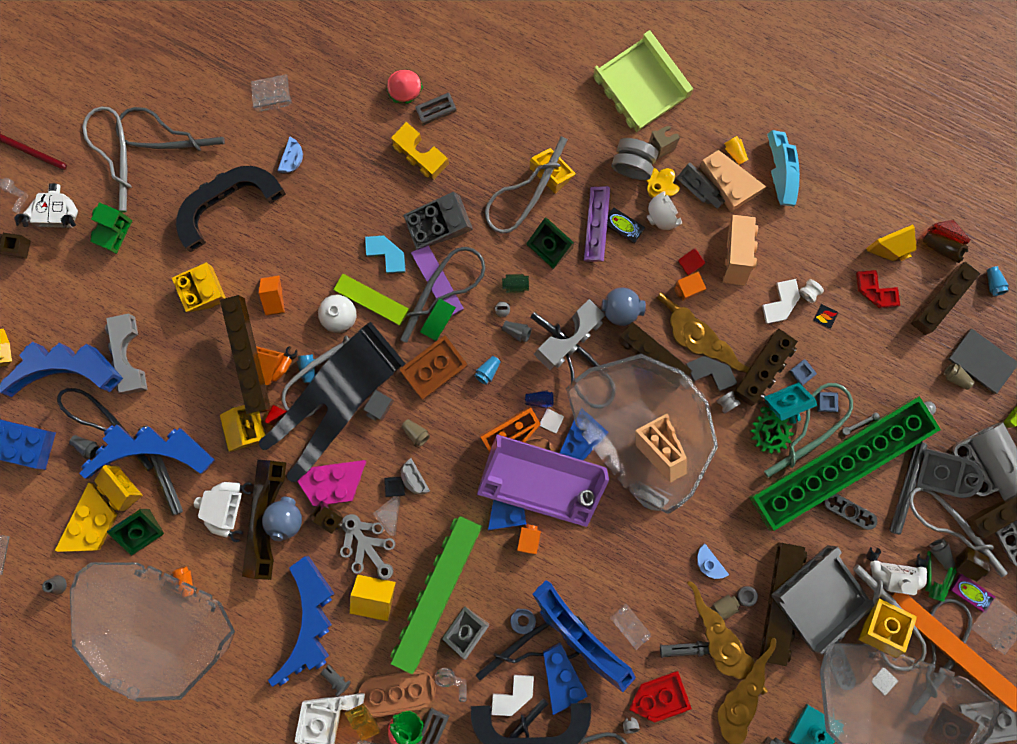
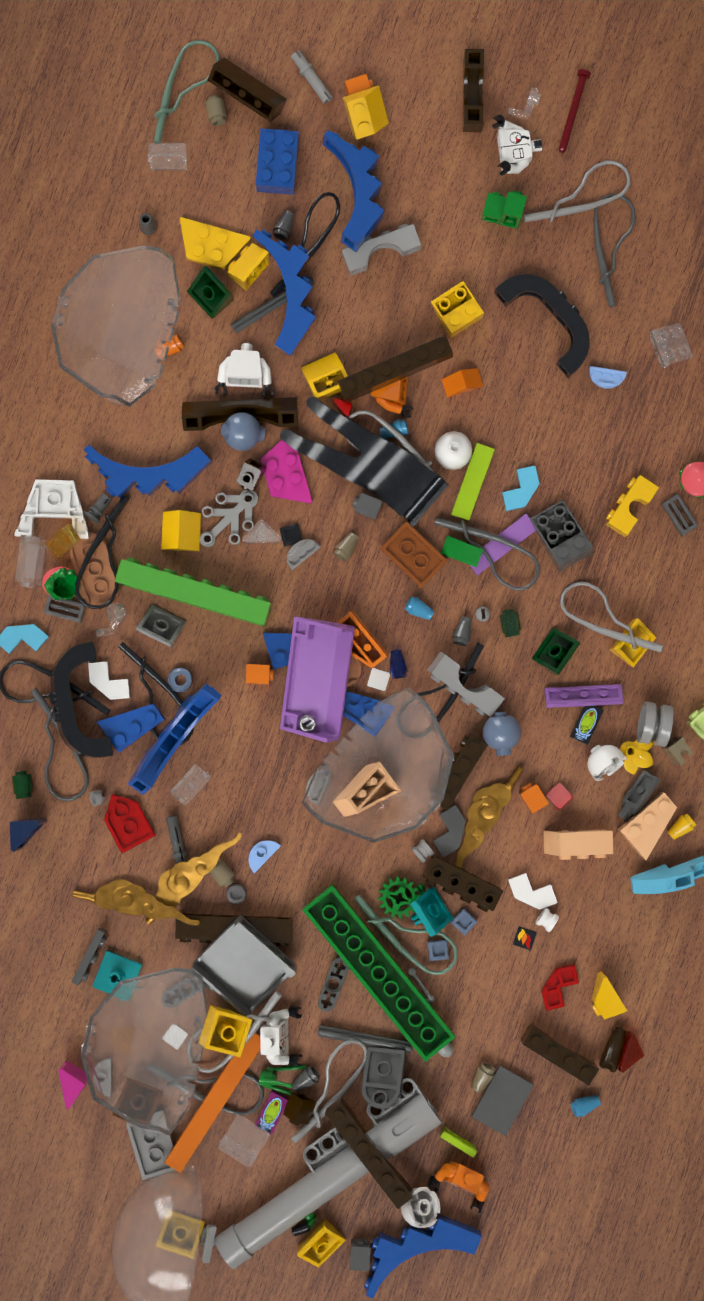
camera: 75 degrees right, 5 degrees up
(353, 671) = (98, 539): none -> black piece

